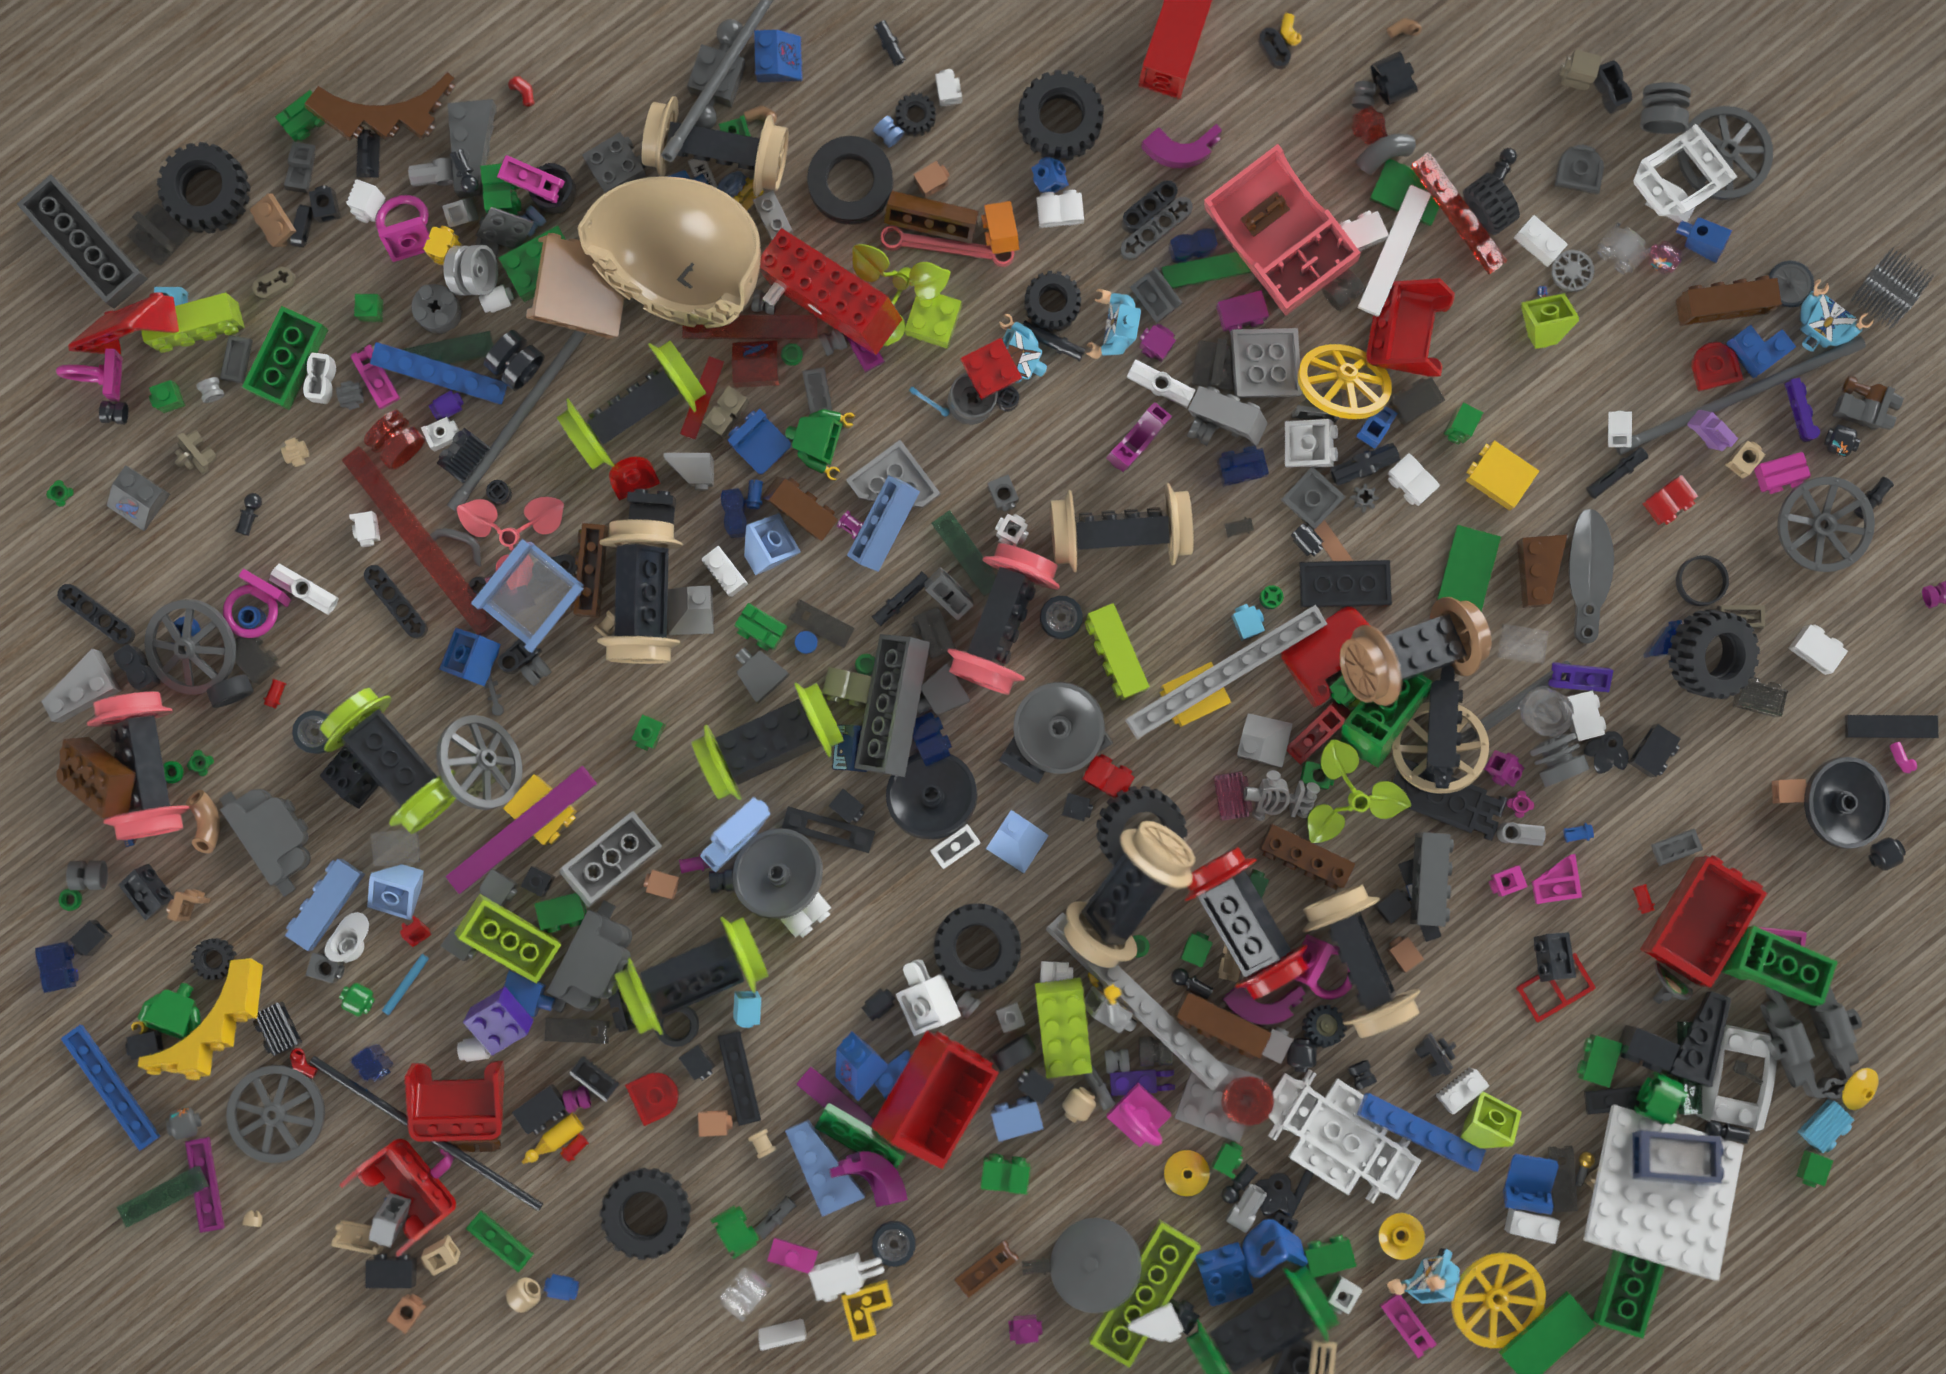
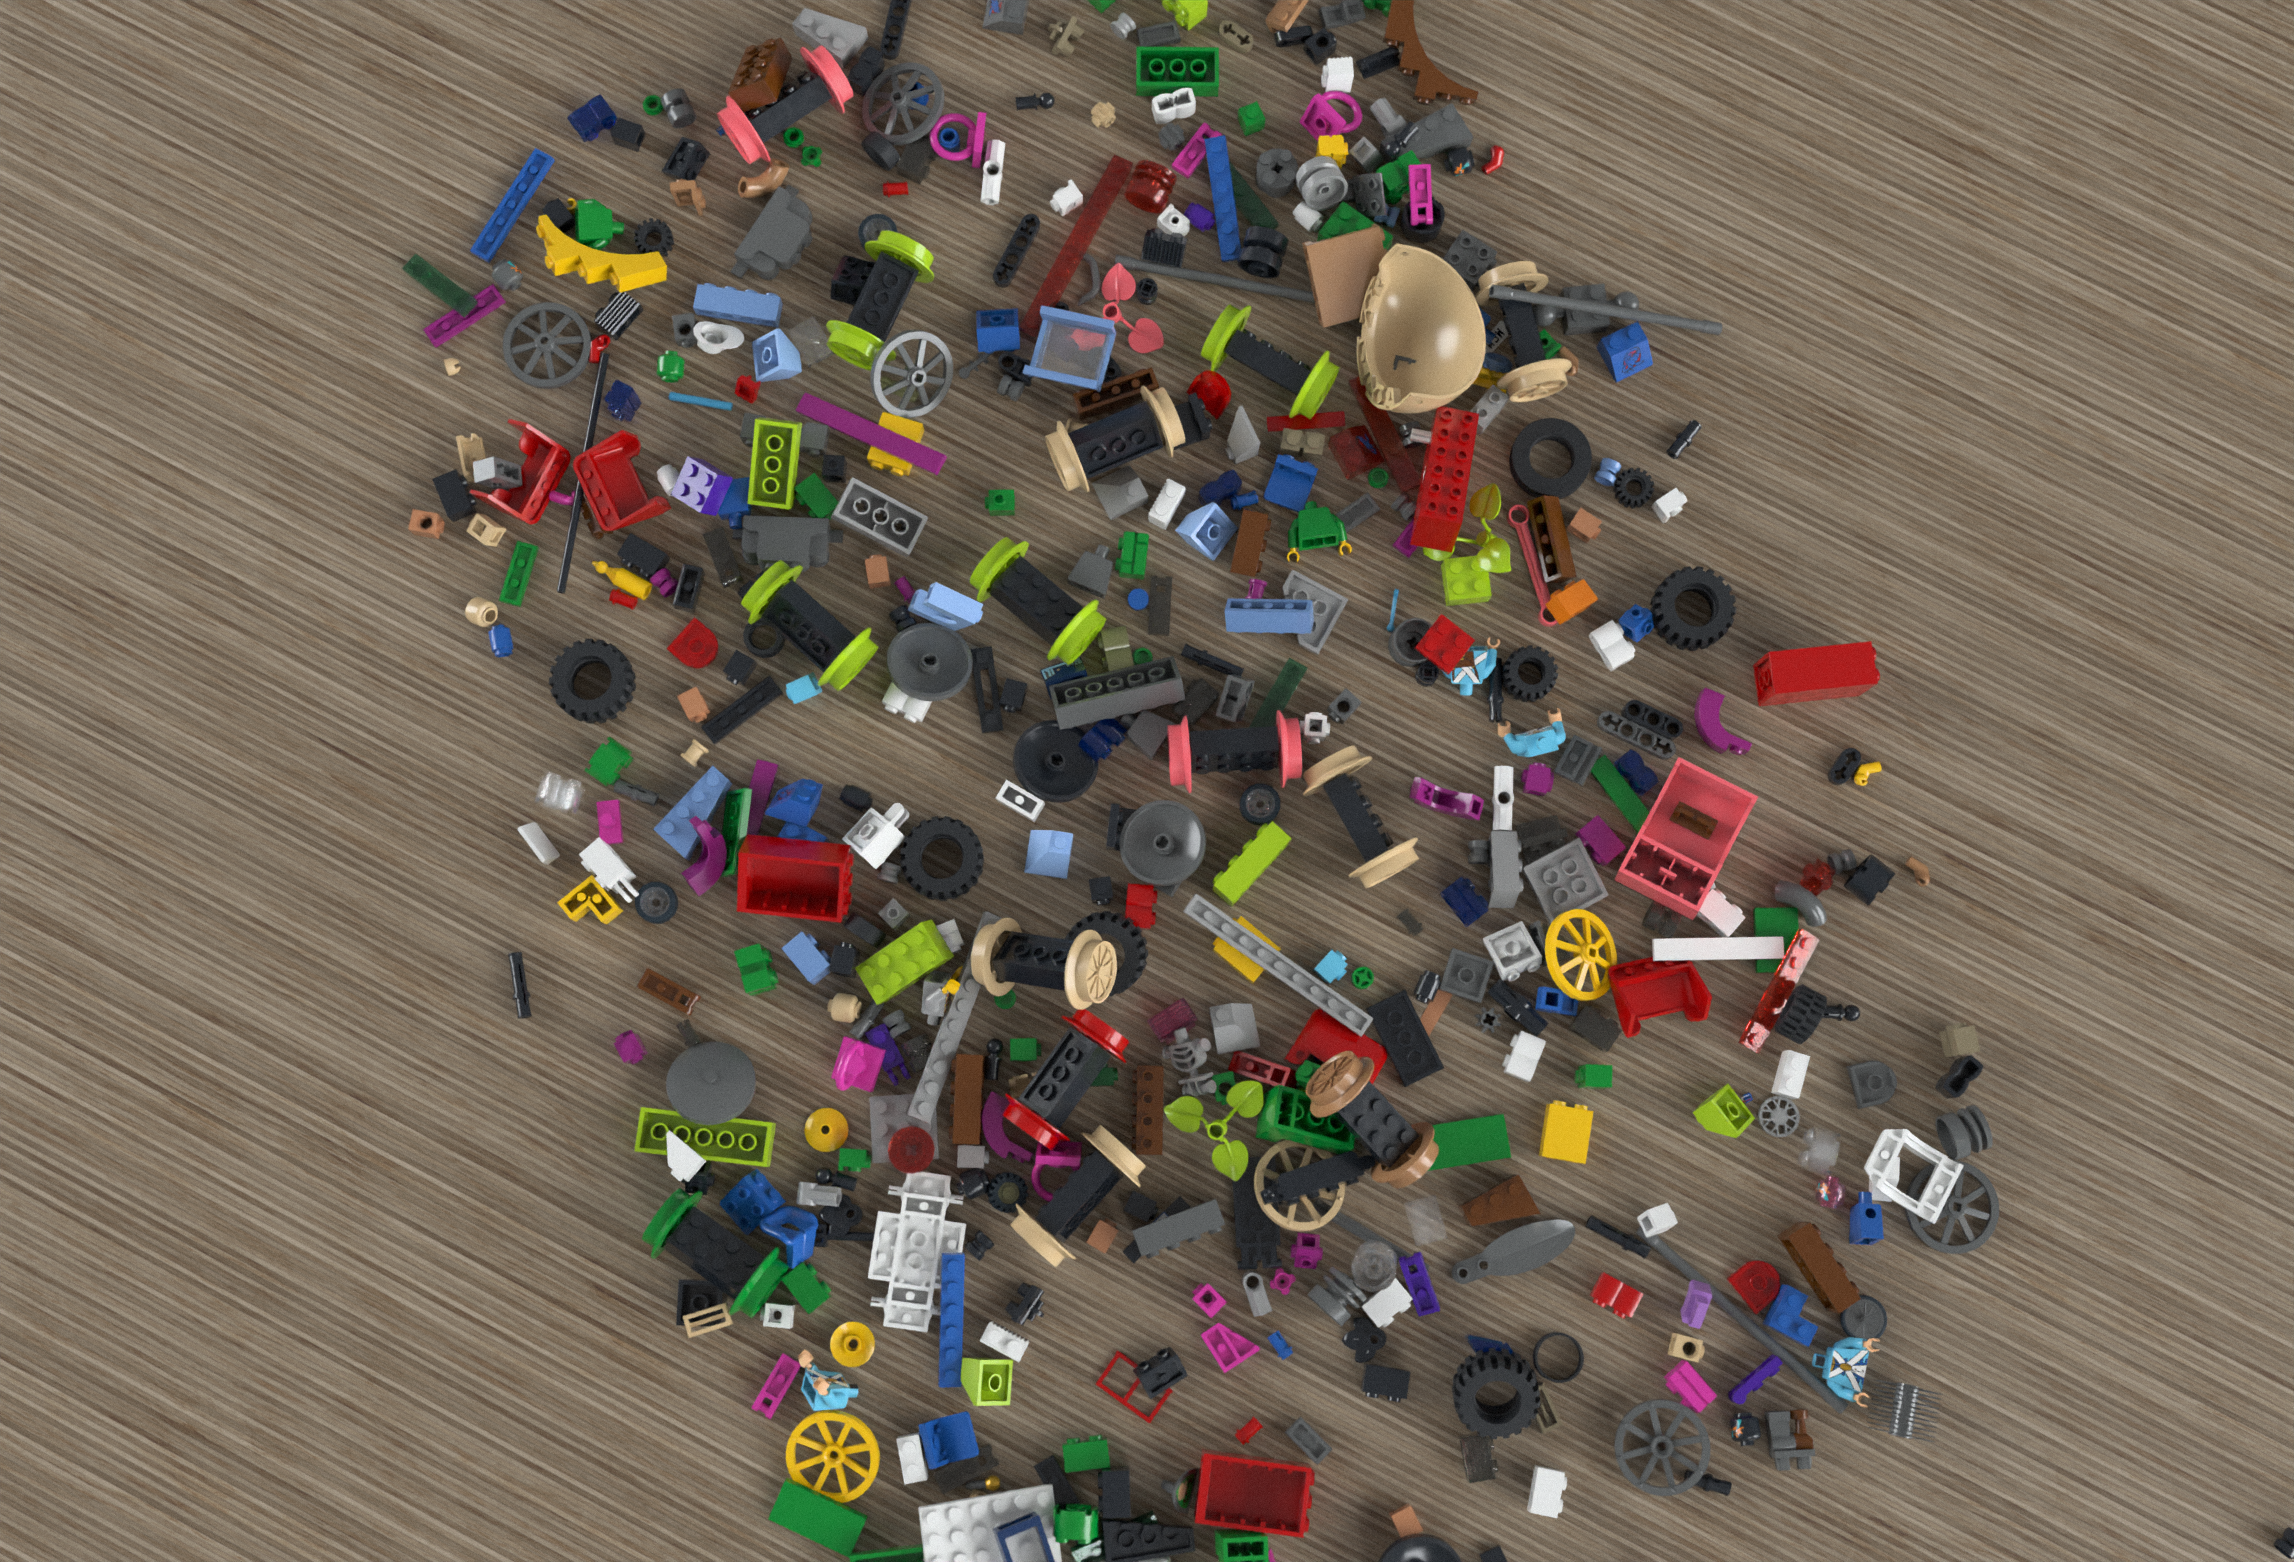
camera: 65 degrees right, 5 degrees down
(509, 124) = (1459, 161): none -> black head

